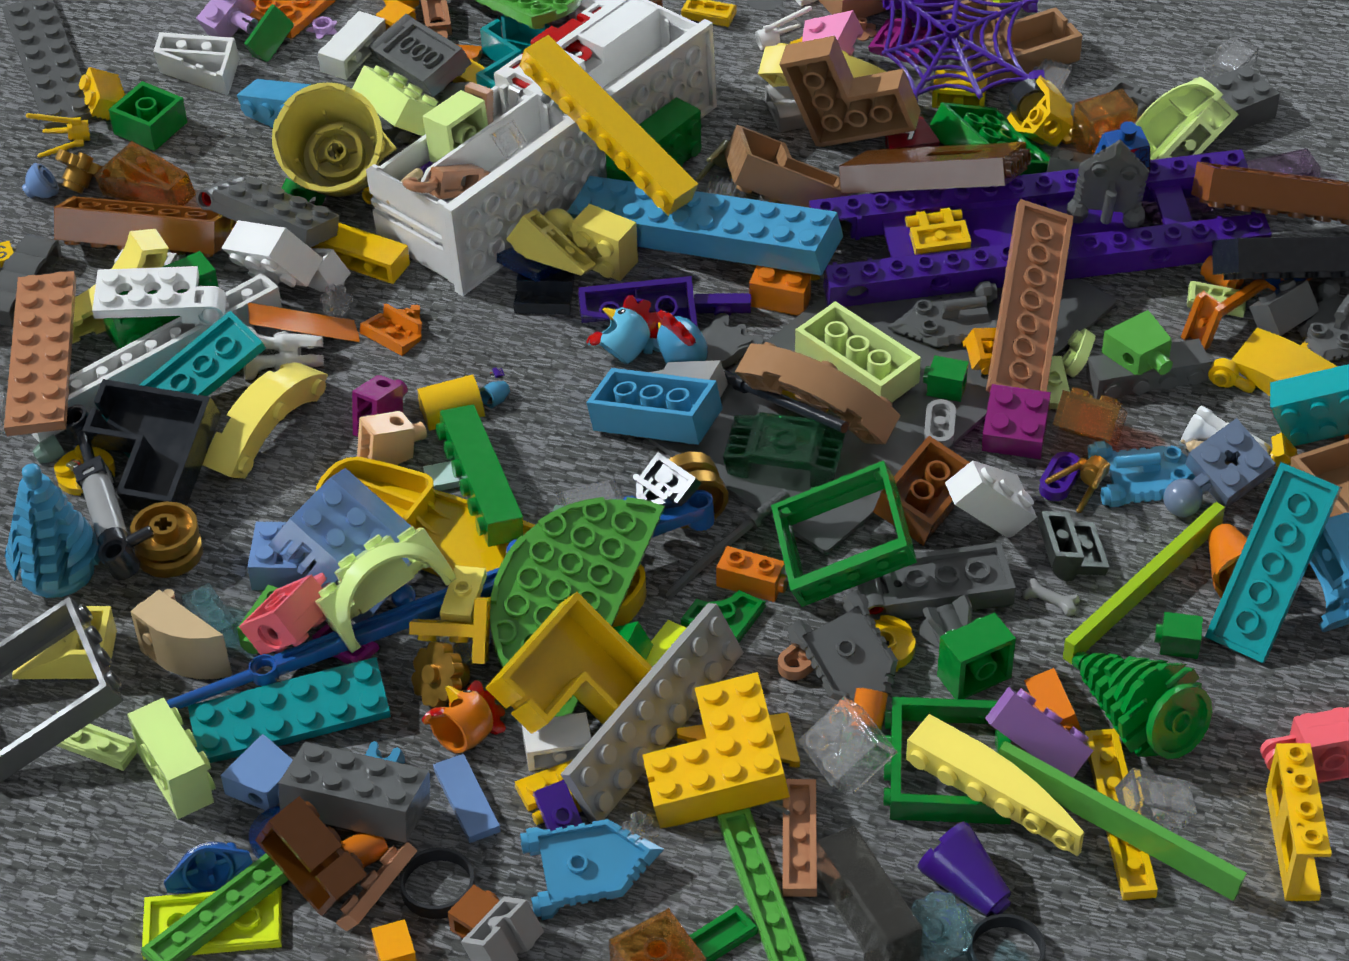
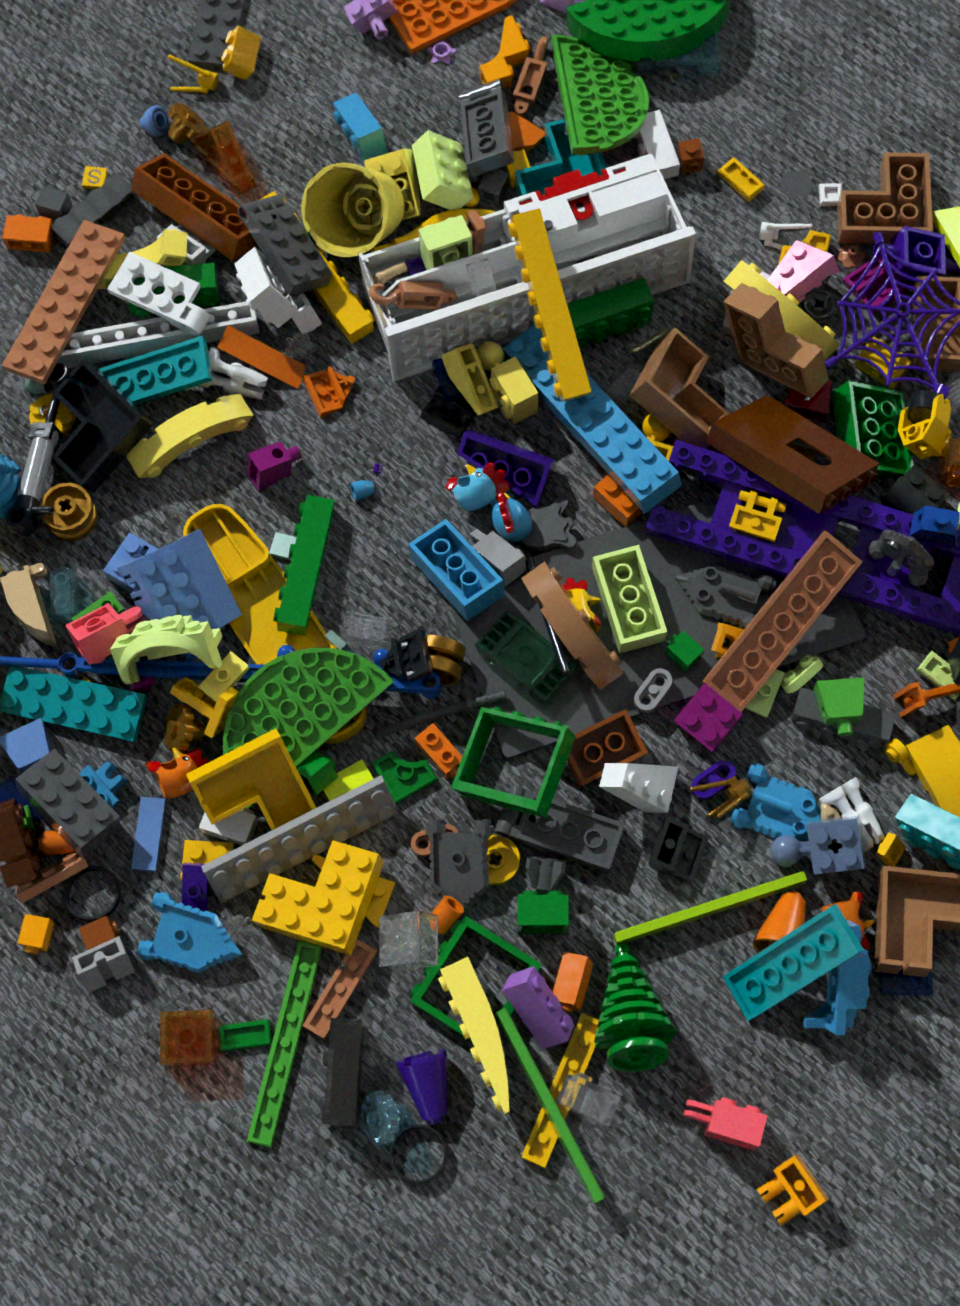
camera: 30 degrees right, 25 degrees up
(148, 115) = (260, 92): green brick -> none
(198, 59) = (327, 49): white wedge -> none
(269, 34) = (392, 46): green slope -> none
(350, 45) = (447, 84): white brick -> none
(388, 437) = (260, 500): light nougat torso -> none
(449, 395) = (325, 483): yellow brick -> none
(723, 303) = (569, 491): dark purple plate -> none
(1066, 603) = (644, 891): light grey piece -> none
(1090, 417) = (762, 747): clear orange brick -> none
(1179, 635) = (702, 968): green brick -> none
(1297, 820) = (668, 1176): yellow window -> none

